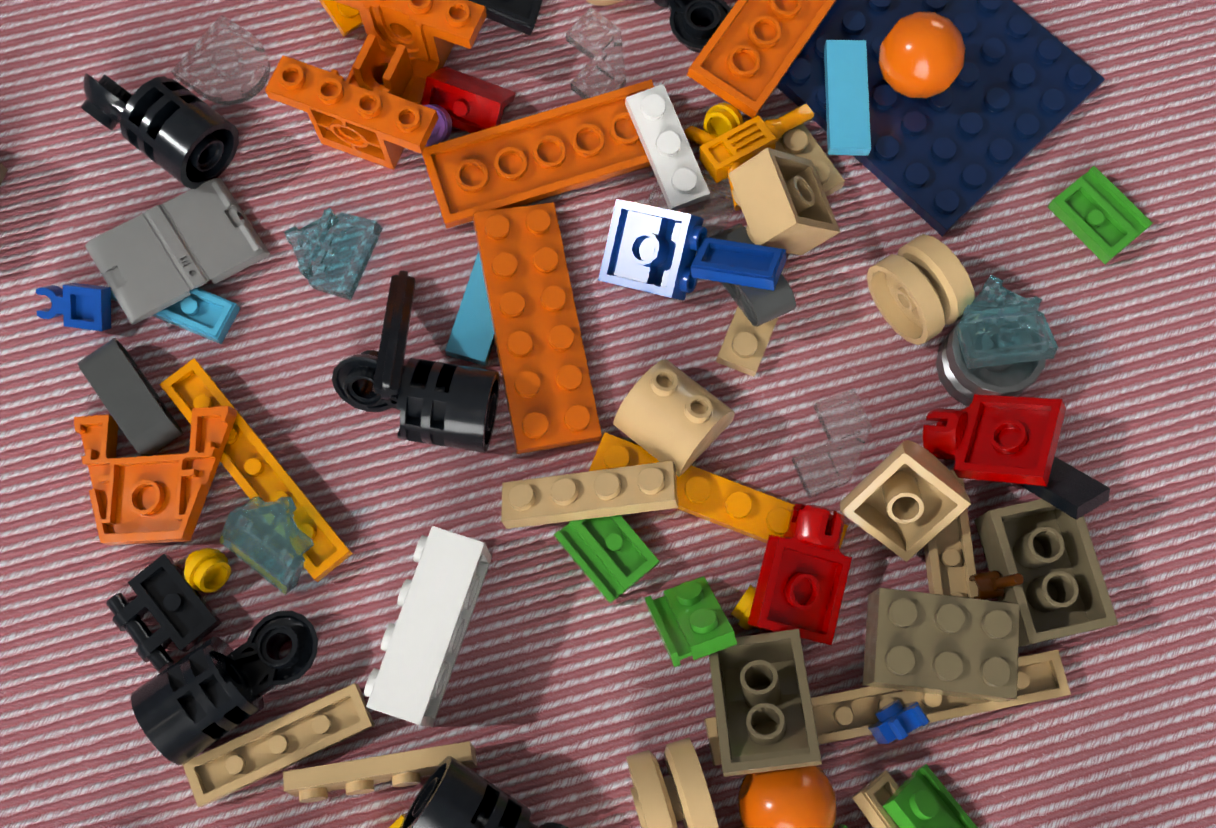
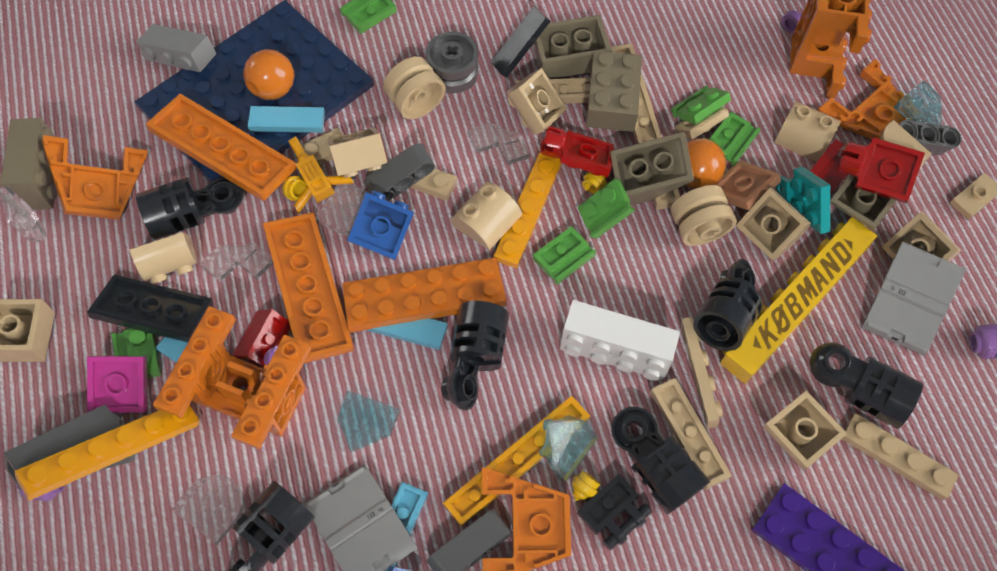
camera: 90 degrees left, 10 degrees down
(394, 336) = (434, 366): black axle -> none
(589, 495) = (534, 260): tan plate -> none
(667, 148) = (311, 215): white plate -> none
(739, 263) = (397, 171): blue tile -> none
(897, 721) = (654, 110): blue plate -> none
(992, 585) = (580, 68): reddish brown hand -> none
(998, 438) = (502, 57): red plate -> none
(1004, 329) = (443, 46): clear light blue slope -> none

